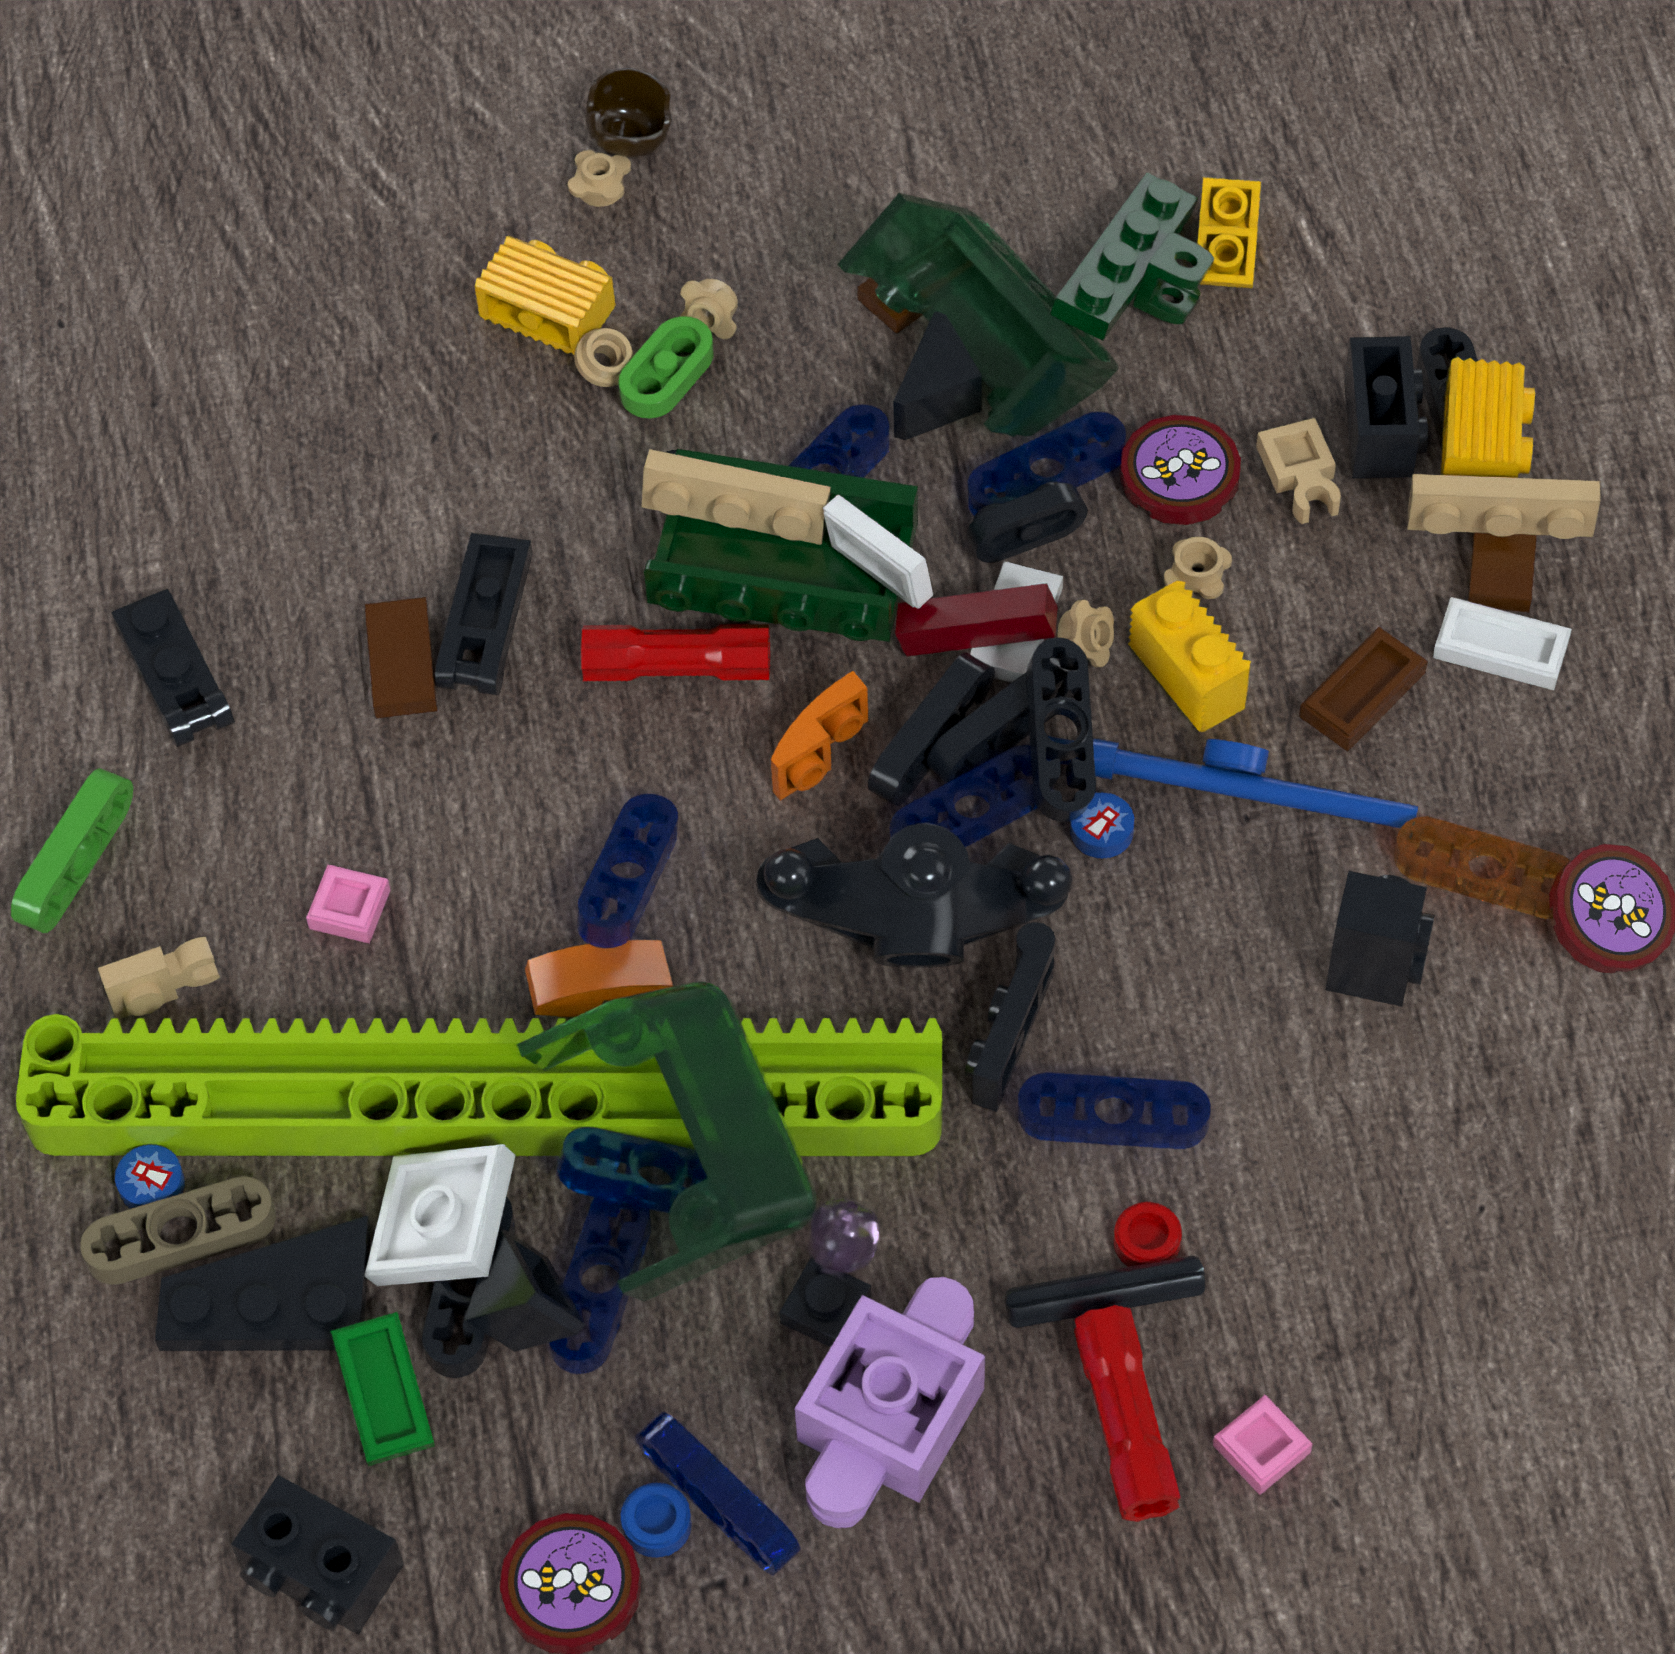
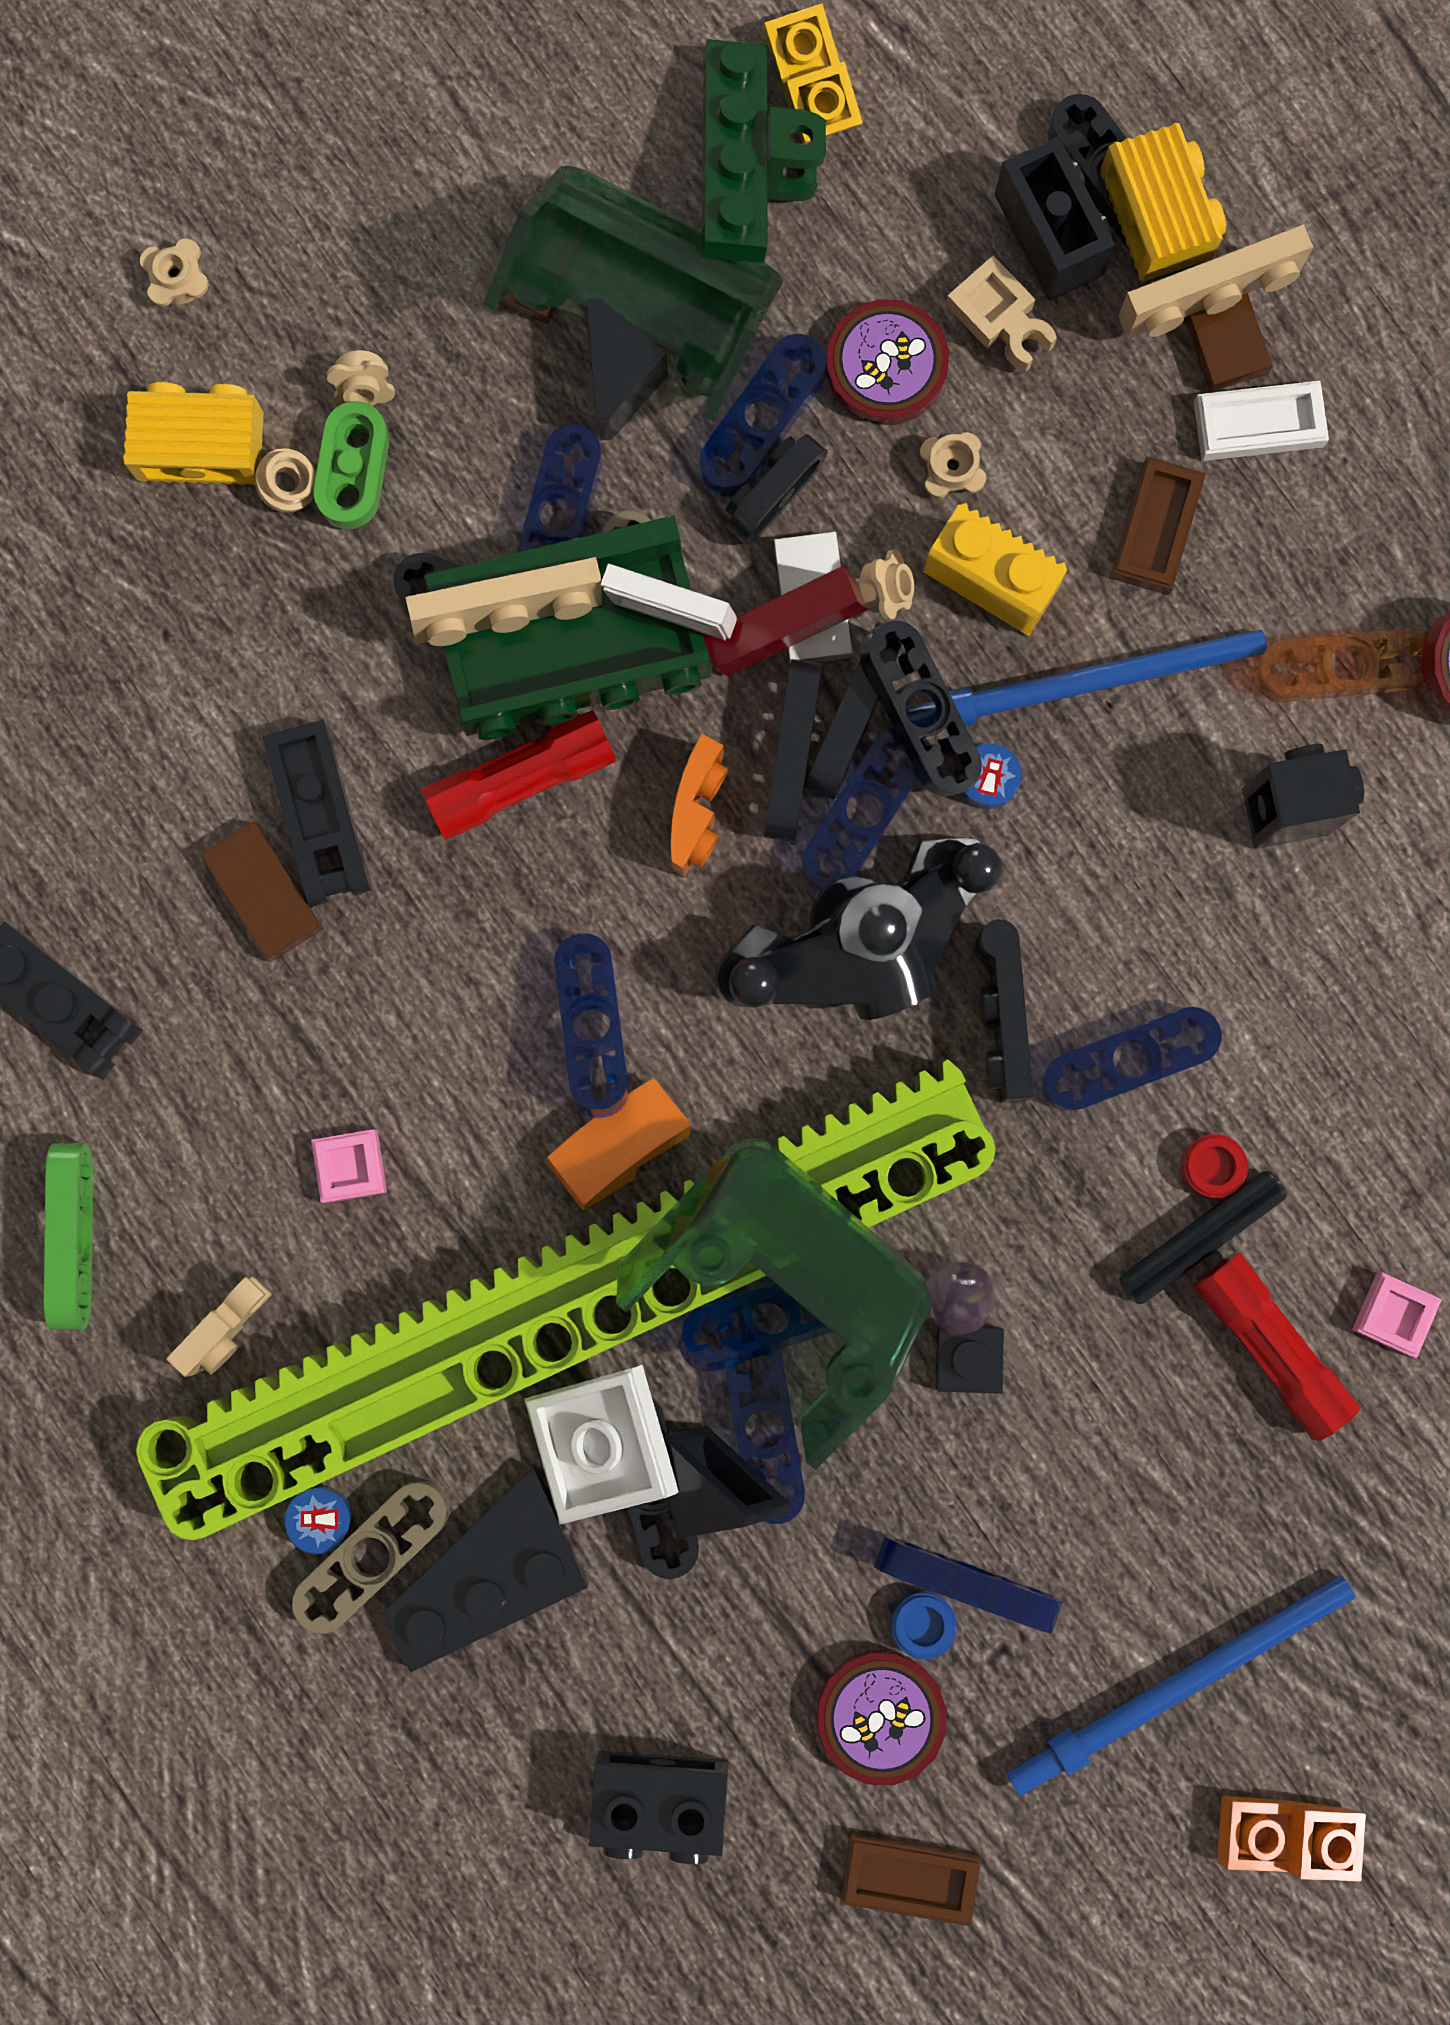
camera: 25 degrees left, 25 degrees up
(382, 1389) = (632, 1623): green tile -> none
(628, 112) = (168, 190): dark brown hair -> none
(889, 1400) = (1080, 1439): lavender brick -> none
(1235, 756) = (1081, 656): blue tile -> none

